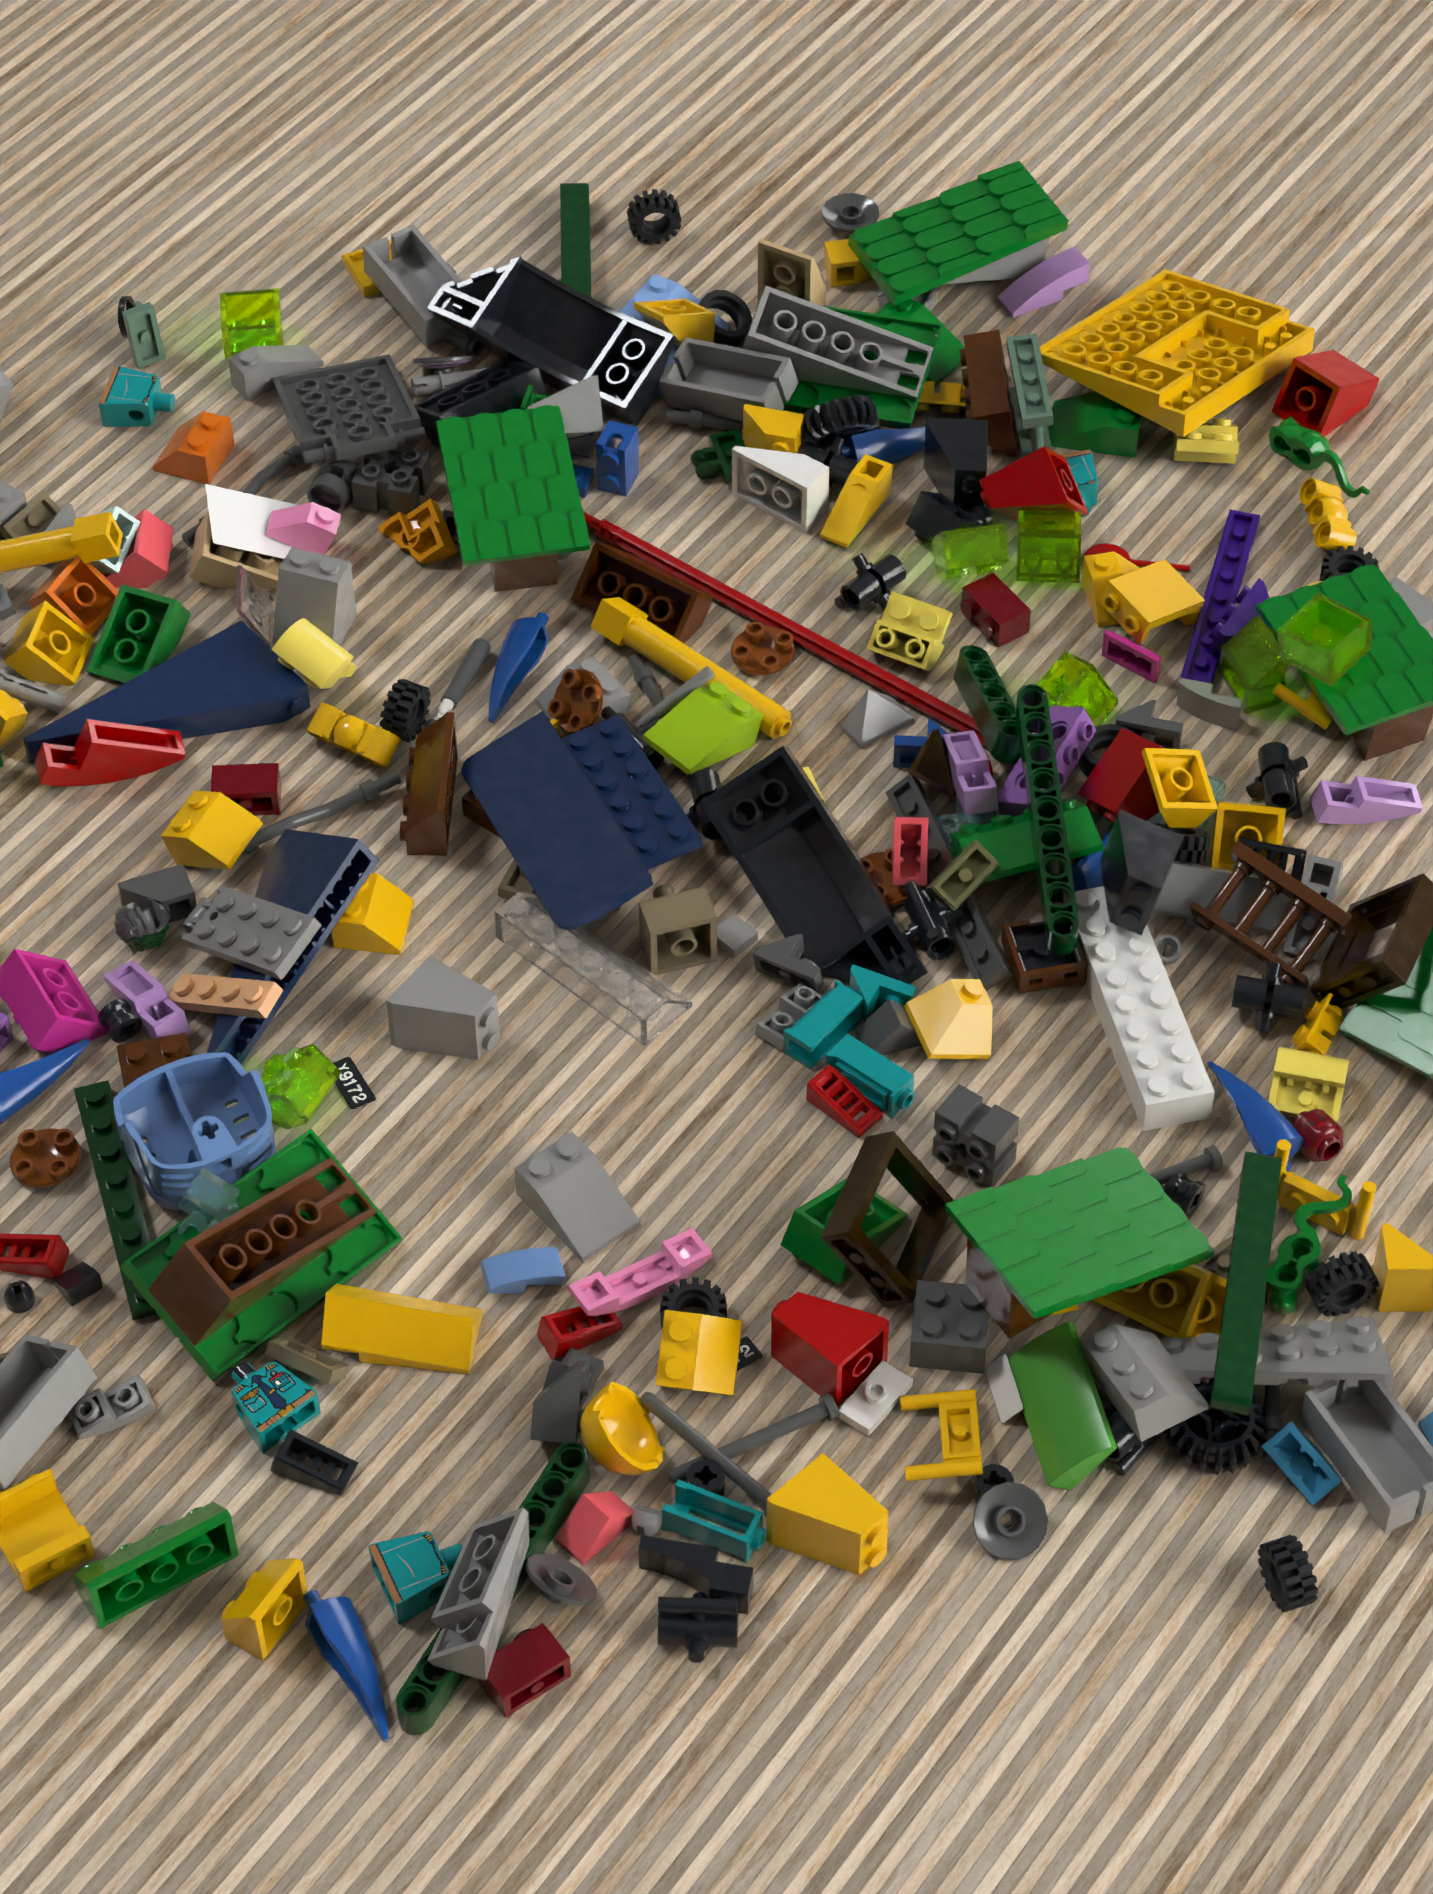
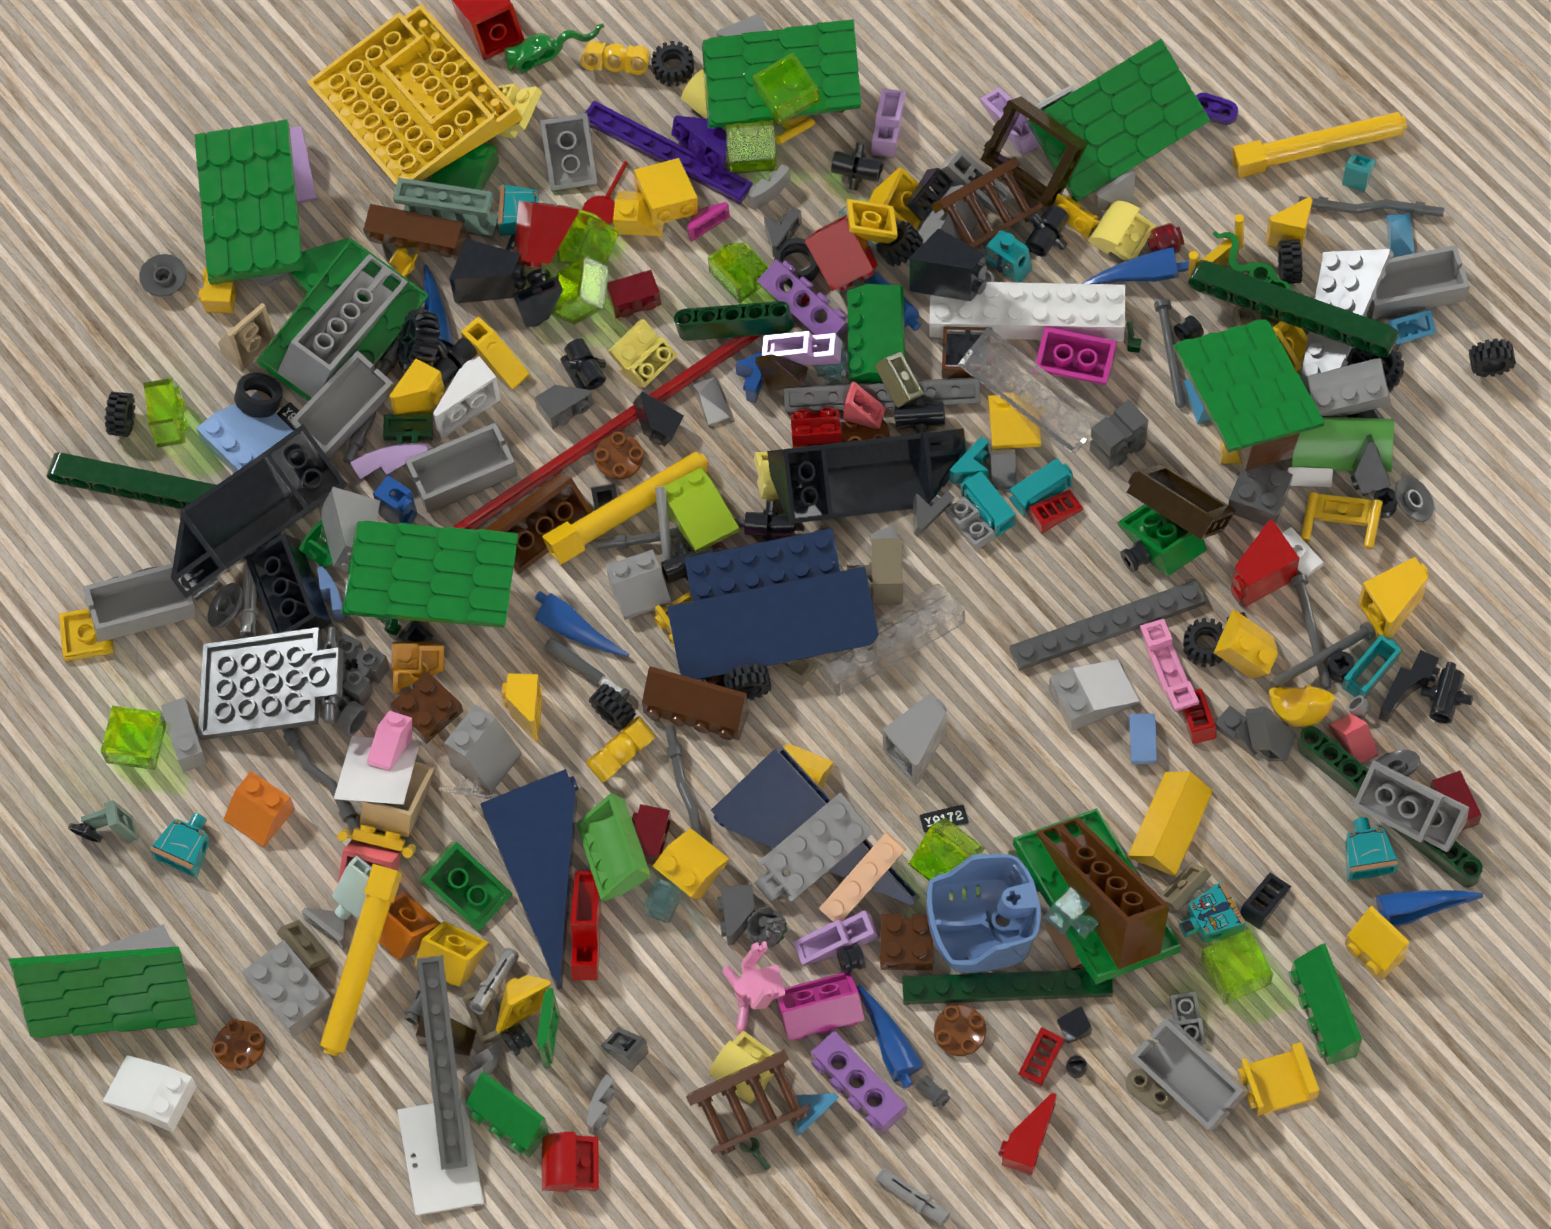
camera: 70 degrees left, 15 degrees up
(50, 922) = (756, 986): none -> bright pink piece
(154, 816) = (662, 900): none -> clear light blue brick
(176, 545) = (368, 835): none -> yellow plate
(197, 1443) = (1236, 966): none -> clear neon green piece
(212, 751) = (612, 848): none -> bright green slope
(313, 655) = (540, 757): light yellow brick -> none
(371, 553) = (429, 707): none -> reddish brown piece
(383, 630) = (524, 701): none -> yellow slope
(476, 829) = (751, 680): none -> black tyre
(577, 700) = (654, 584): dark orange dish -> none
(667, 246) = (166, 412): none -> clear neon green piece
(676, 442) = (388, 458): none -> lavender slope
(679, 318) = (261, 420): yellow slope -> none
(688, 506) = (461, 467): none -> light grey piece
(690, 1200) = (1107, 625): none -> dark grey plate
(708, 647) = (603, 494): none -> black slope
(794, 1197) = (1135, 556): none -> black wheel
(811, 579) = (562, 403): none -> dark grey slope
(820, 666) = (656, 419): none -> black slope
(864, 818) = (815, 427): none -> red brick
(998, 1010) = (1031, 390): none -> clear slope
(1033, 1445) = (1369, 469): none -> black slope
(1034, 717) = (864, 312): dark green beam -> none
(1078, 1066) = (1076, 355): none -> dark pink slope
(1139, 1137) = (1134, 344): none -> dark green hand
(1174, 505) = (569, 151): none -> light grey slope
(1215, 950) = (1008, 257): none -> teal torso
(1373, 1070) = (1118, 190): none -> light grey slope

